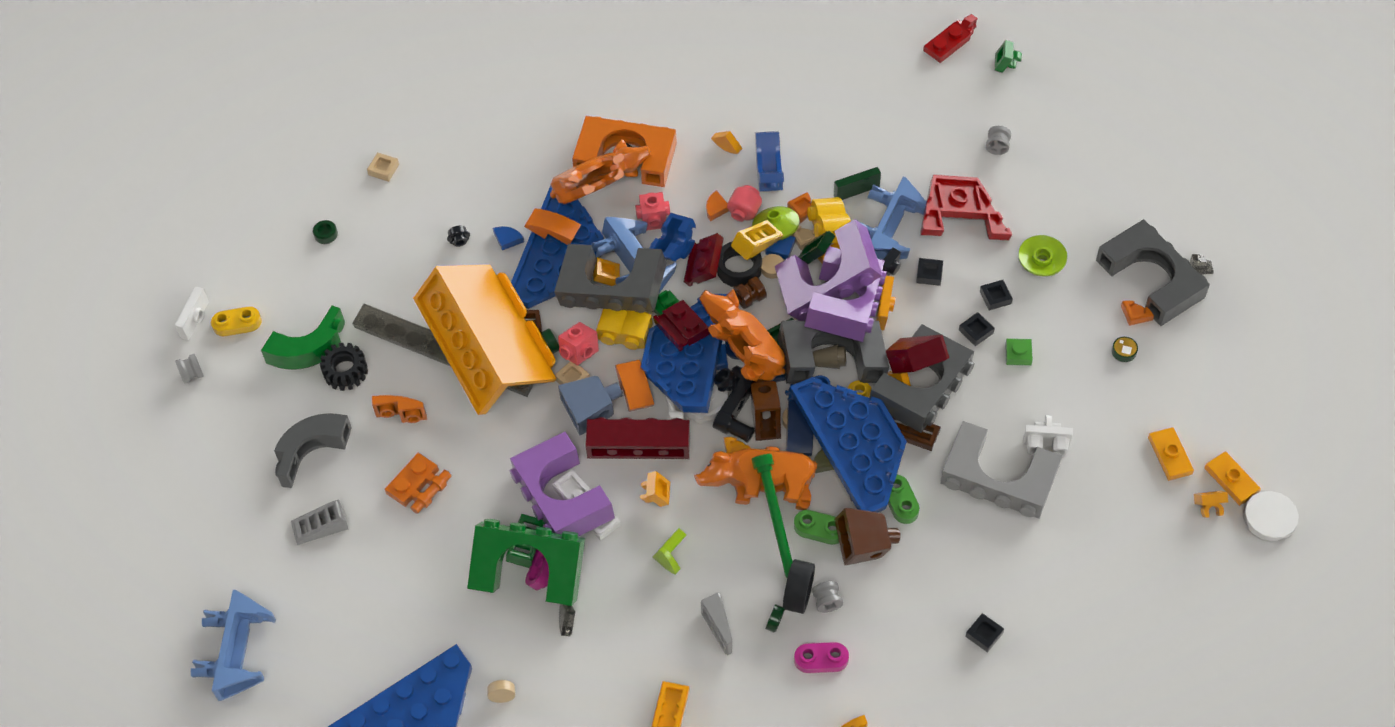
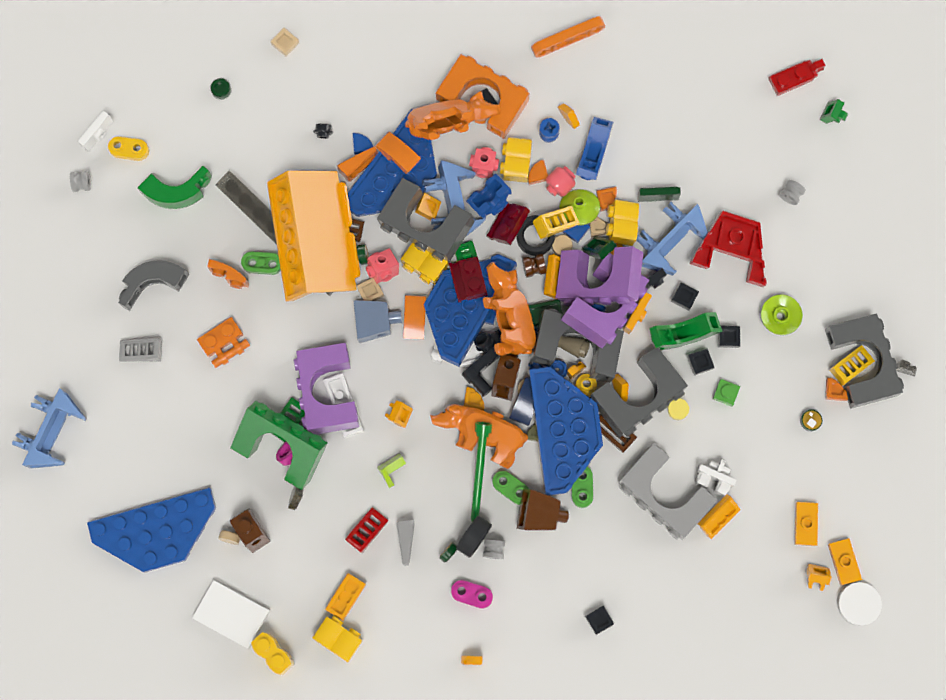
camera: 20 degrees right, 20 degrees up
(348, 377) = (189, 212): black tyre -> none
(435, 386) = (262, 263): none -> bright green plate
(509, 254) = (354, 166): none -> orange slope
(521, 668) = (249, 530): none -> reddish brown torso
(637, 438) = (400, 365): dark red brick -> none
(662, 648) = (367, 541): none -> red slope
(687, 197) = (516, 160): none -> yellow brick
(694, 71) = (568, 36): none -> orange beam
(707, 165) = (546, 133): none -> blue wheel
(775, 296) = (552, 276): none -> light orange plate
(841, 379) = (574, 370): none -> light orange tile
(916, 353) = (640, 373): dark red slope -> none
(949, 303) = (685, 332): none -> green arch
(973, 385) = (678, 409): none -> light yellow tile
(1070, 476) = (719, 516): none -> light orange plate
(1133, 294) = (839, 374): none -> yellow slope

